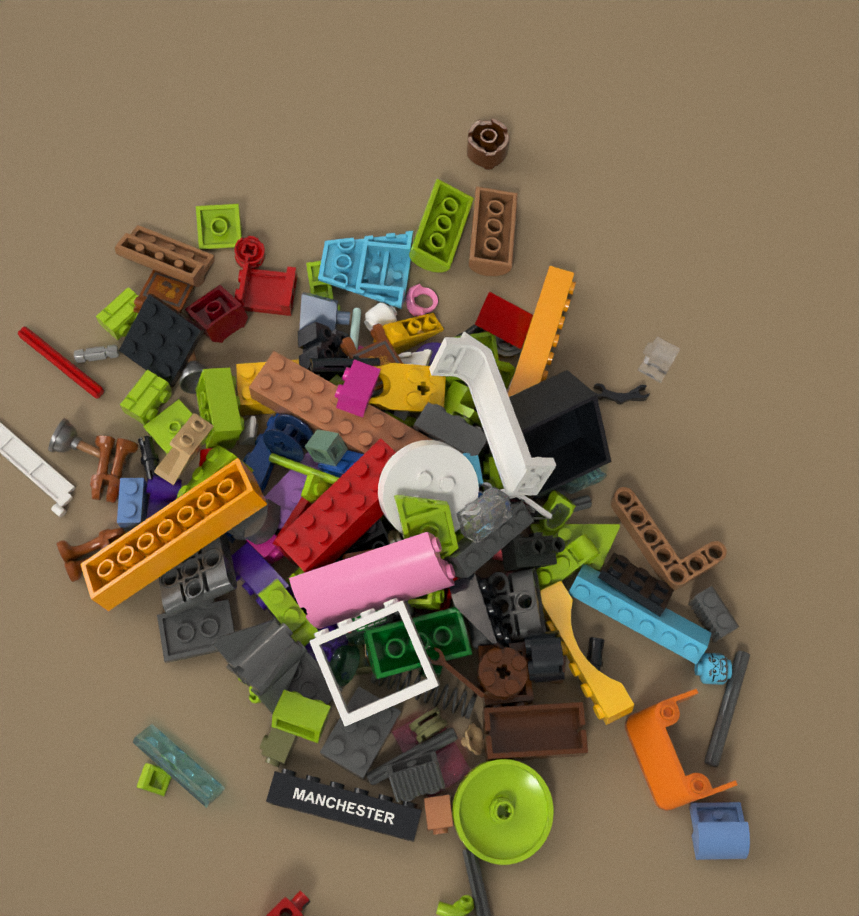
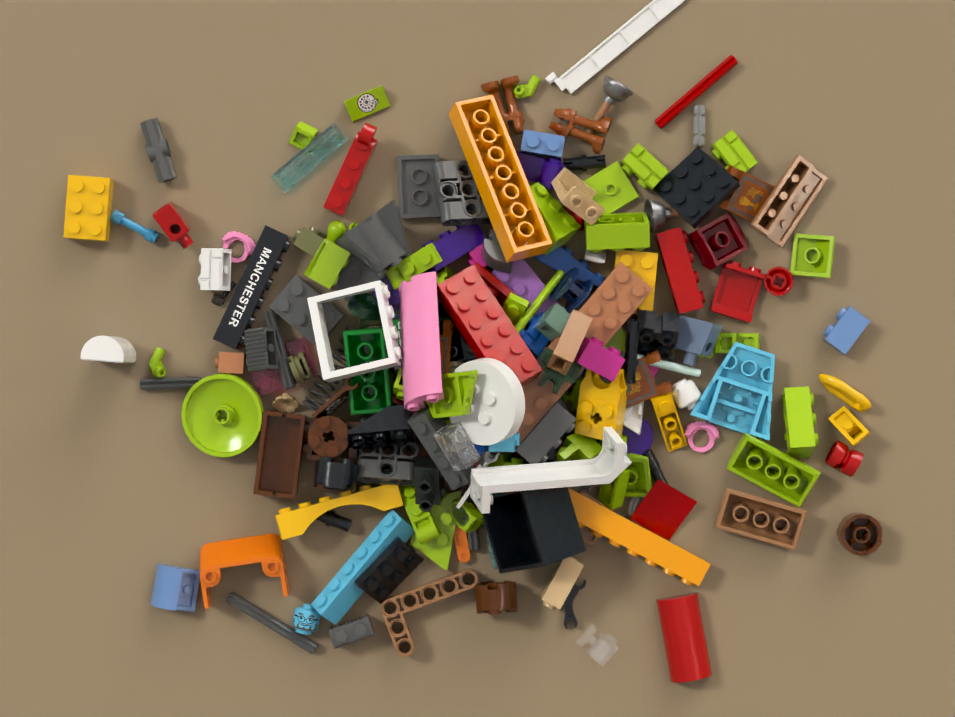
camera: 105 degrees right, 20 degrees up
(73, 531) = (528, 89): none -> lime arm
(106, 709) = (367, 103): none -> lime slope
(187, 710) = (352, 170): none -> red hinge
(253, 343) = (679, 270): none -> red brick
(260, 717) = (335, 231): none -> lime piece
(289, 186) = (845, 330): none -> medium blue brick
(295, 820) = (249, 244): none -> bright pink piece
(329, 856) = (215, 269): none -> white brick
(344, 412) = (569, 341): none -> brick
(352, 178) = (845, 392): none -> yellow piece
(365, 845) = (219, 299): none -> clear smoke hand
(378, 425) = (554, 376): none -> clear green plate
(386, 165) = (848, 426): none -> yellow slope
(388, 210) = (799, 421): none -> lime wedge
(417, 168) = (845, 459): none -> red wheel
(588, 515) = (462, 545): none -> orange piece
(614, 401) = (561, 582): none -> tan brick
(629, 283) = (684, 637): none -> red brick
(636, 465) = (496, 597): none -> reddish brown brick

